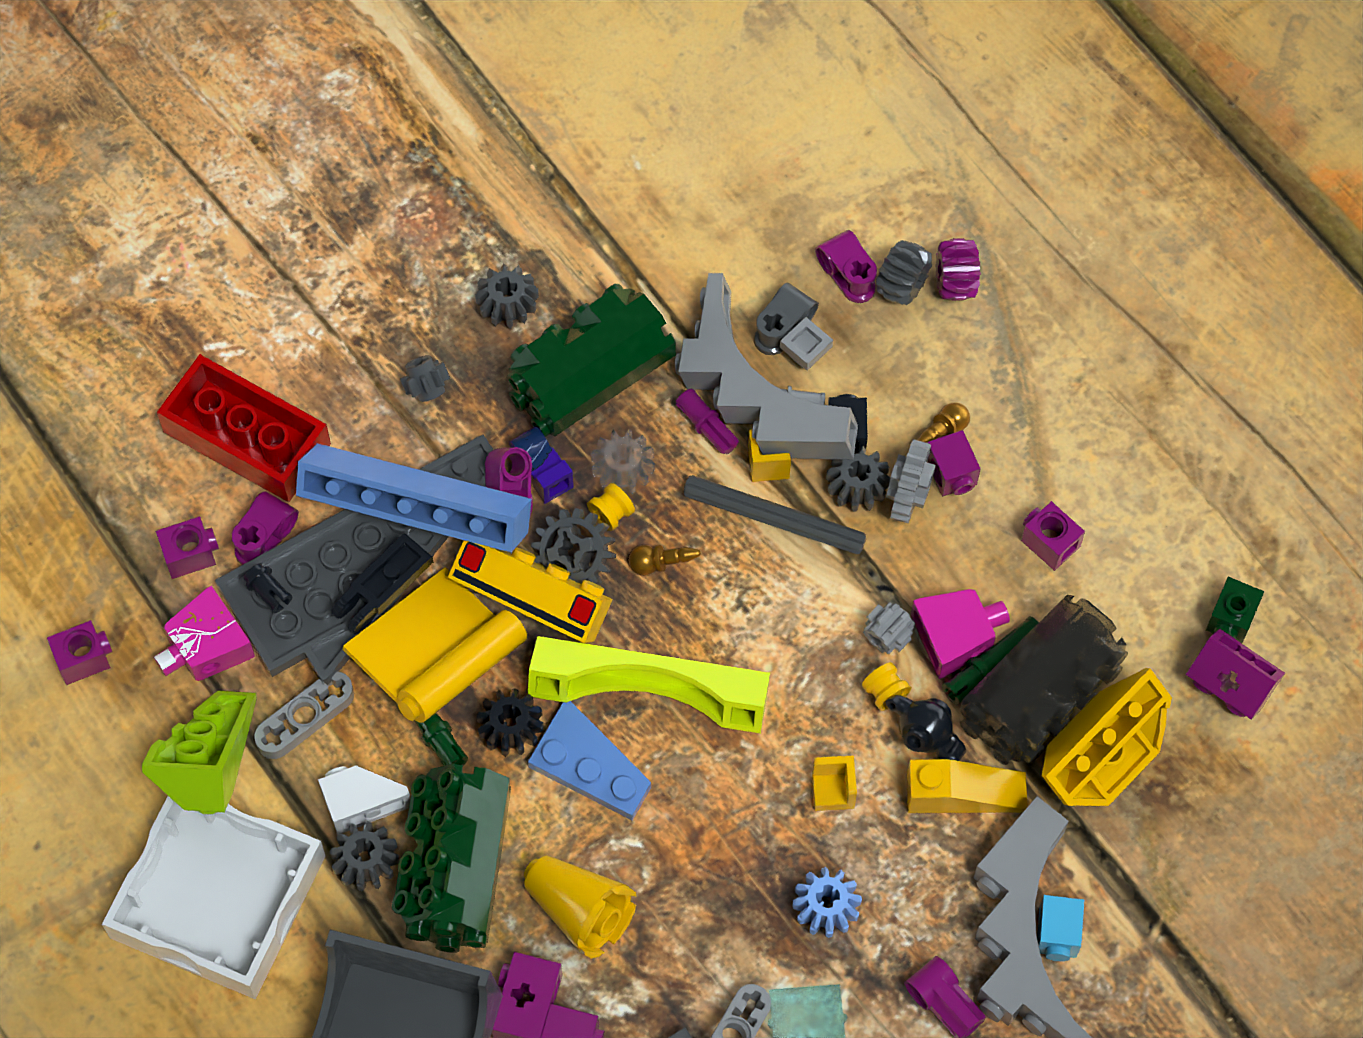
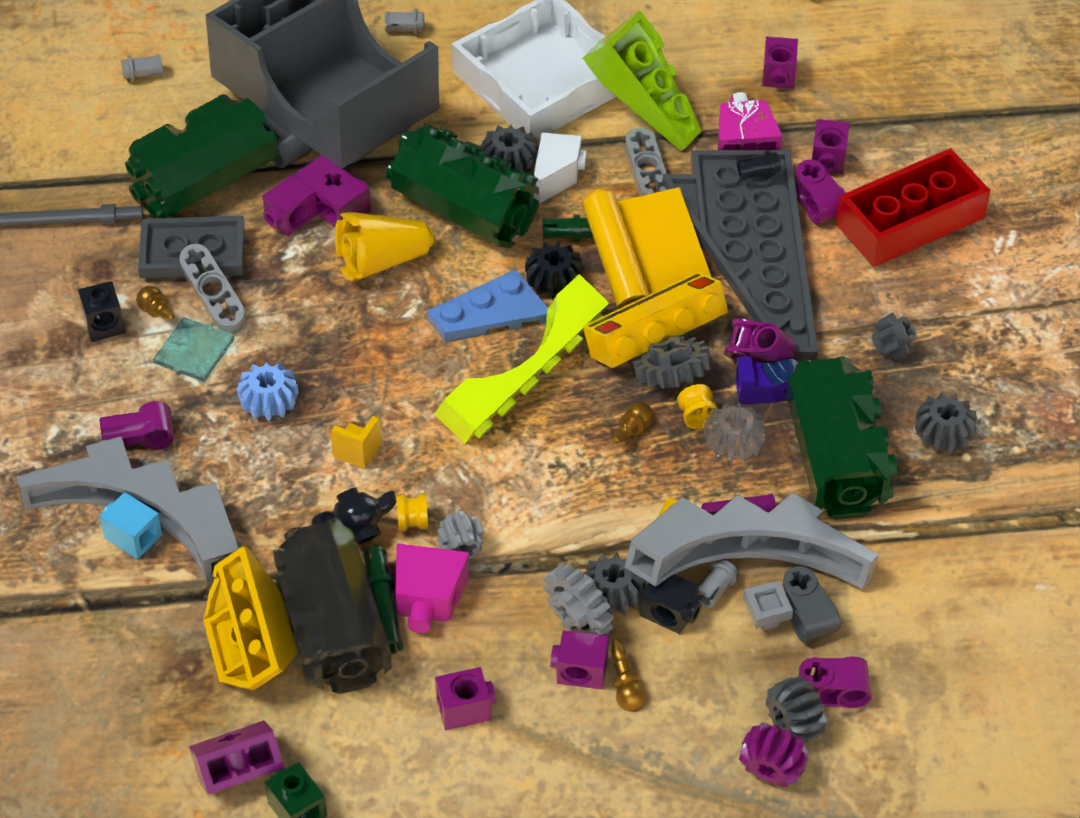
camera: 120 degrees right, 15 degrees down
(383, 581) = (718, 230): black hinge -> none
(413, 497) = (774, 263): medium blue brick -> none
(775, 514) = (621, 516): dark grey axle -> none
(964, 788) = (296, 503): yellow slope -> none

